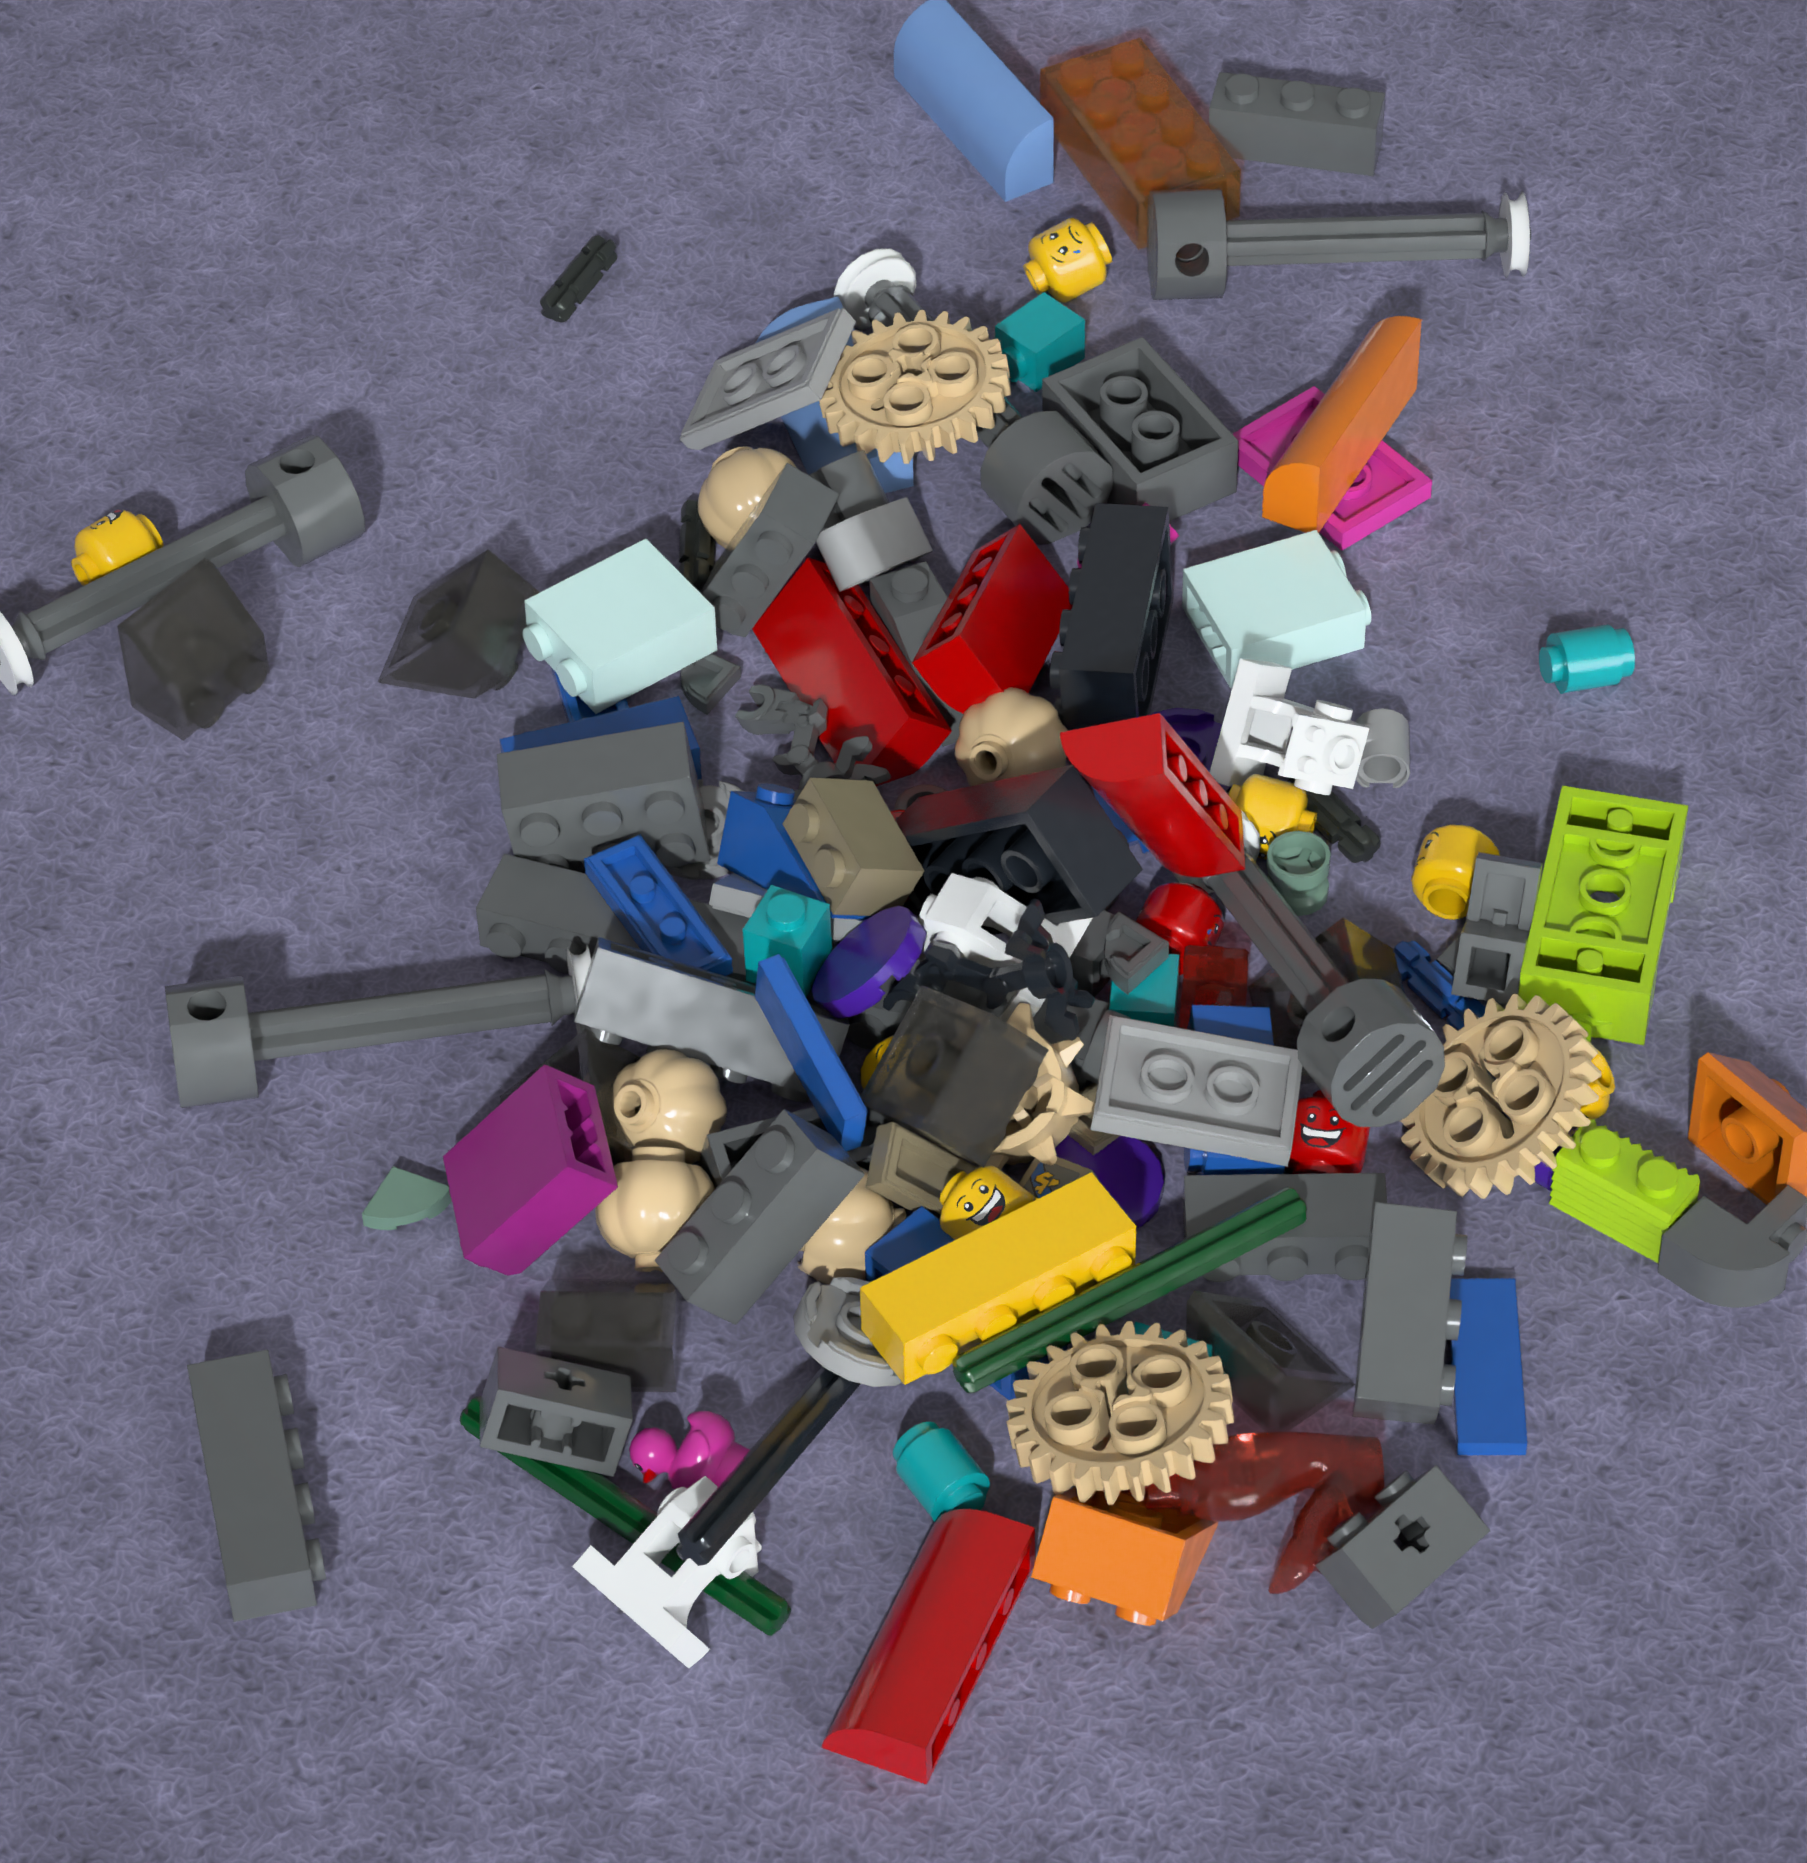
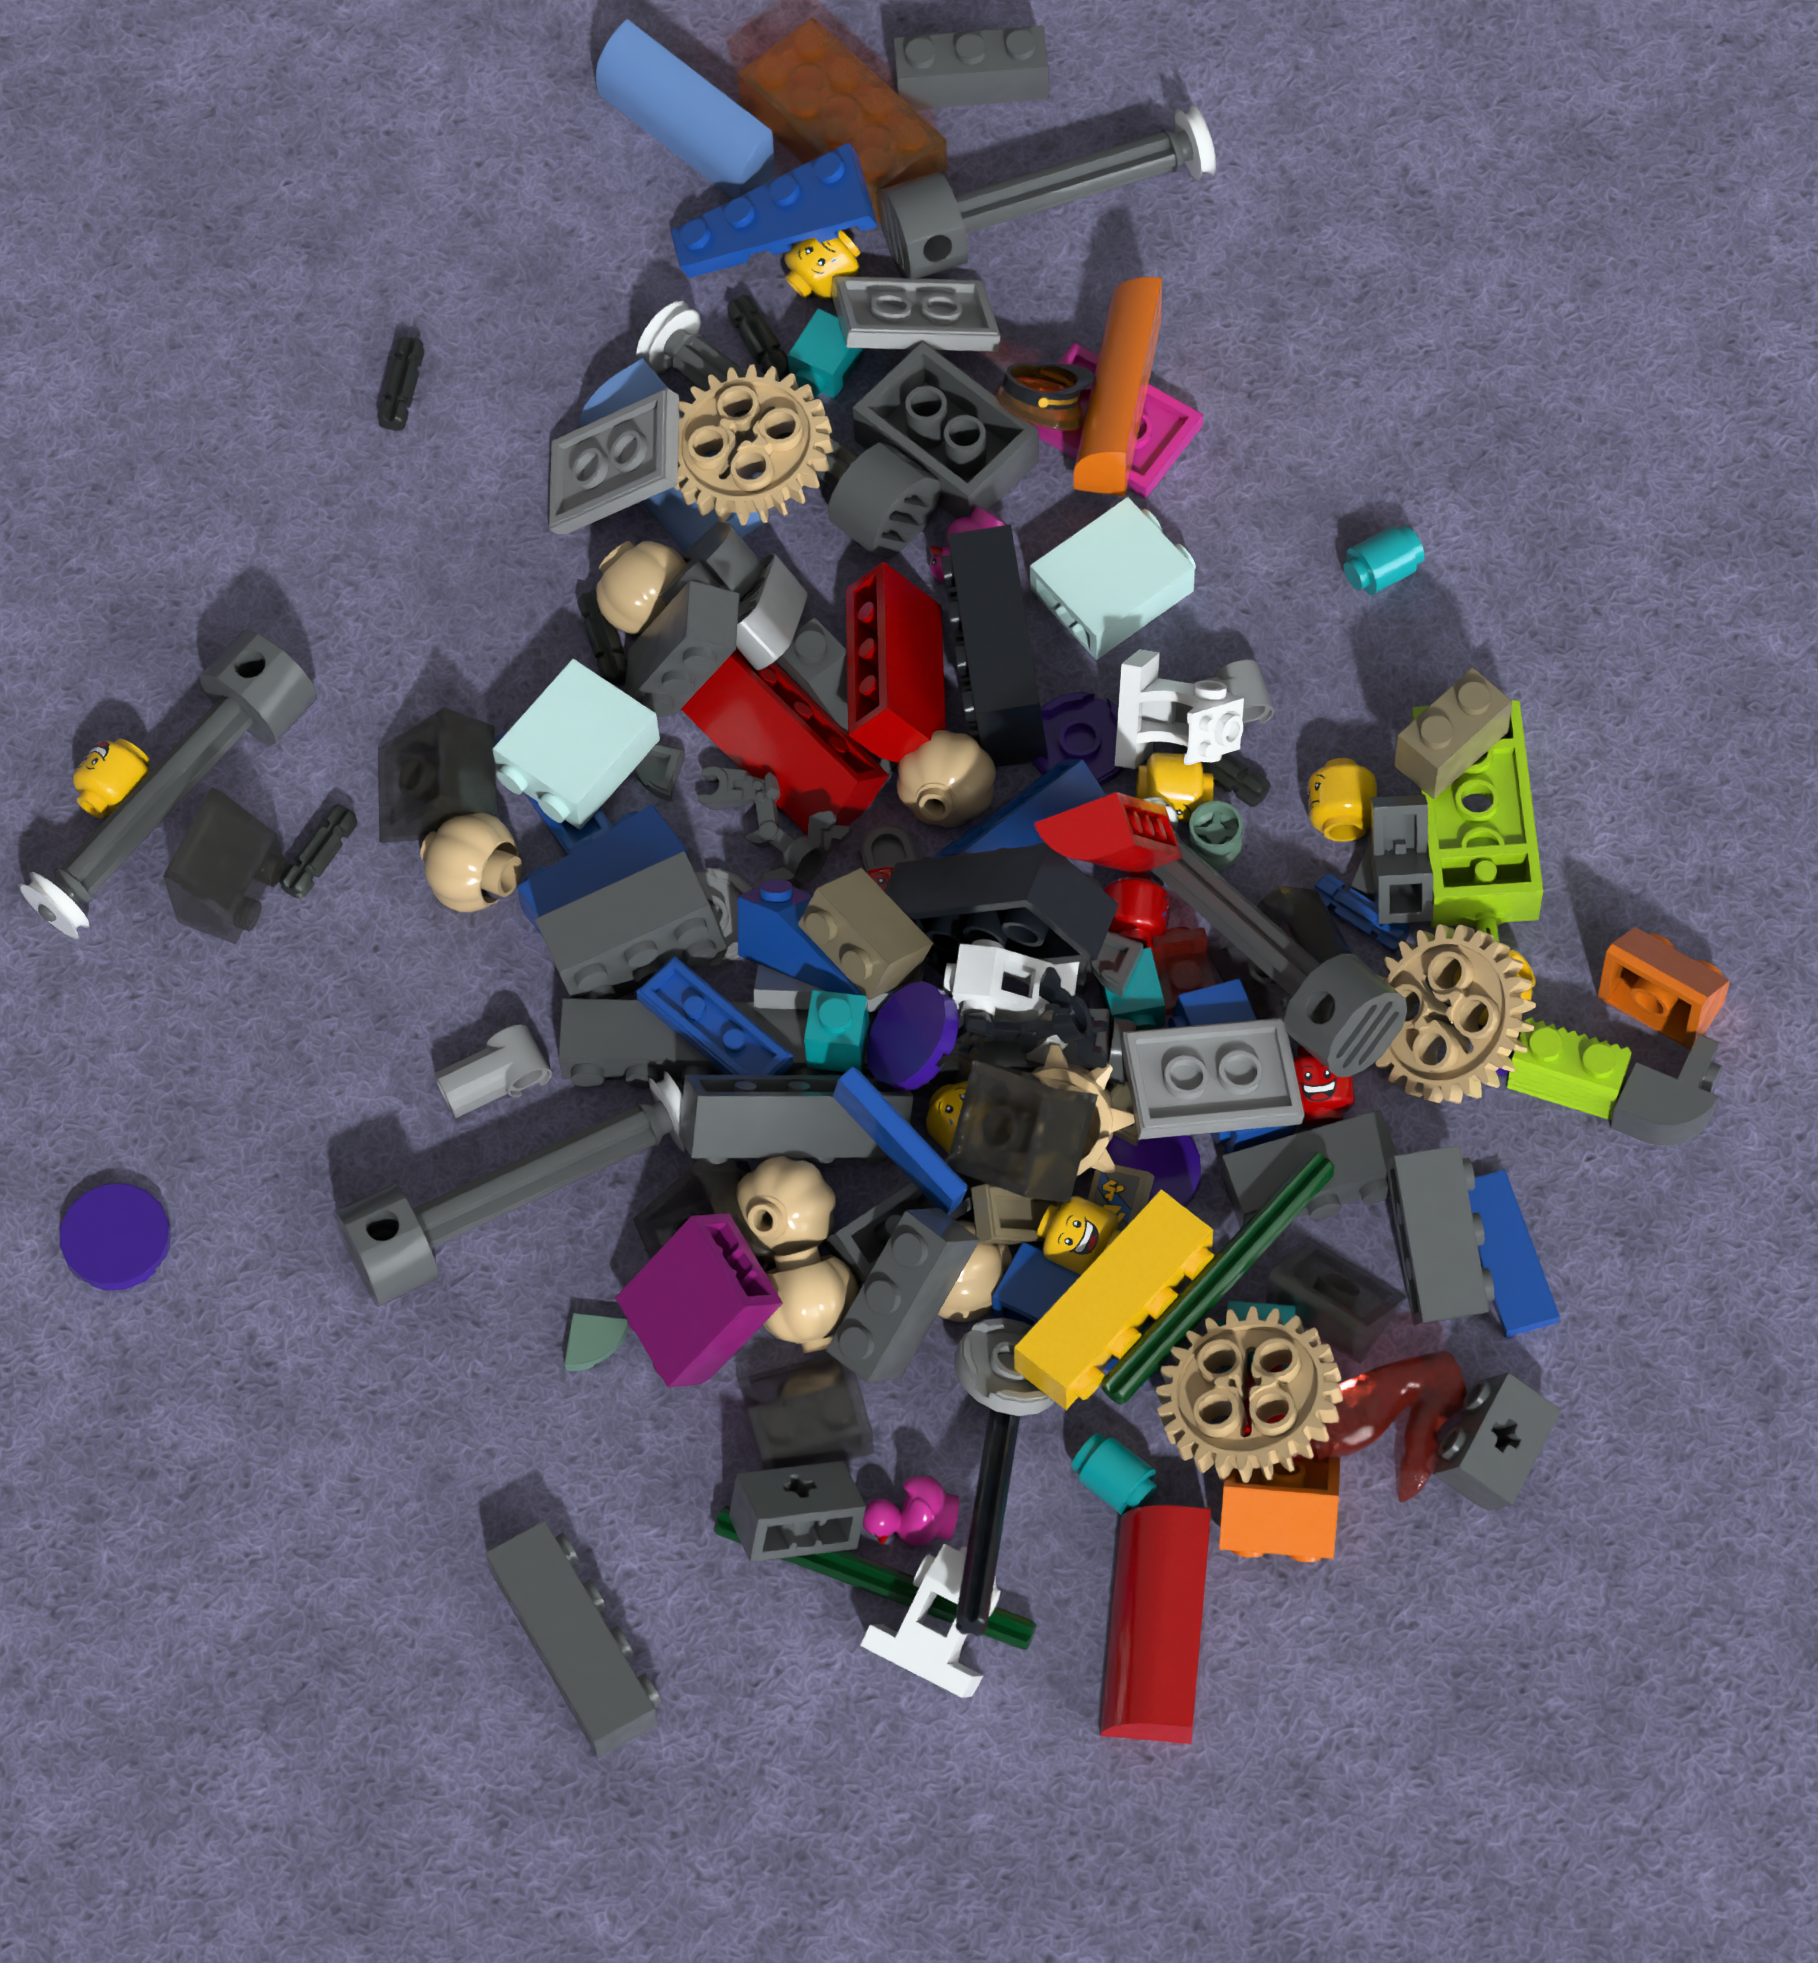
camera: 15 degrees left, 15 degrees up
(307, 672) = (318, 851): none -> pearl dark grey axle
(422, 913) = (504, 1067): none -> light grey piece
(465, 704) = (471, 856): none -> tan plant
(972, 302) = (758, 335): none -> pearl dark grey axle
(1050, 192) = (794, 207): none -> blue wing
(1166, 322) = (909, 311): none -> light grey tile
(1256, 412) = (1045, 394): none -> clear orange piece
(1595, 808) = (1453, 733): none -> dark tan brick

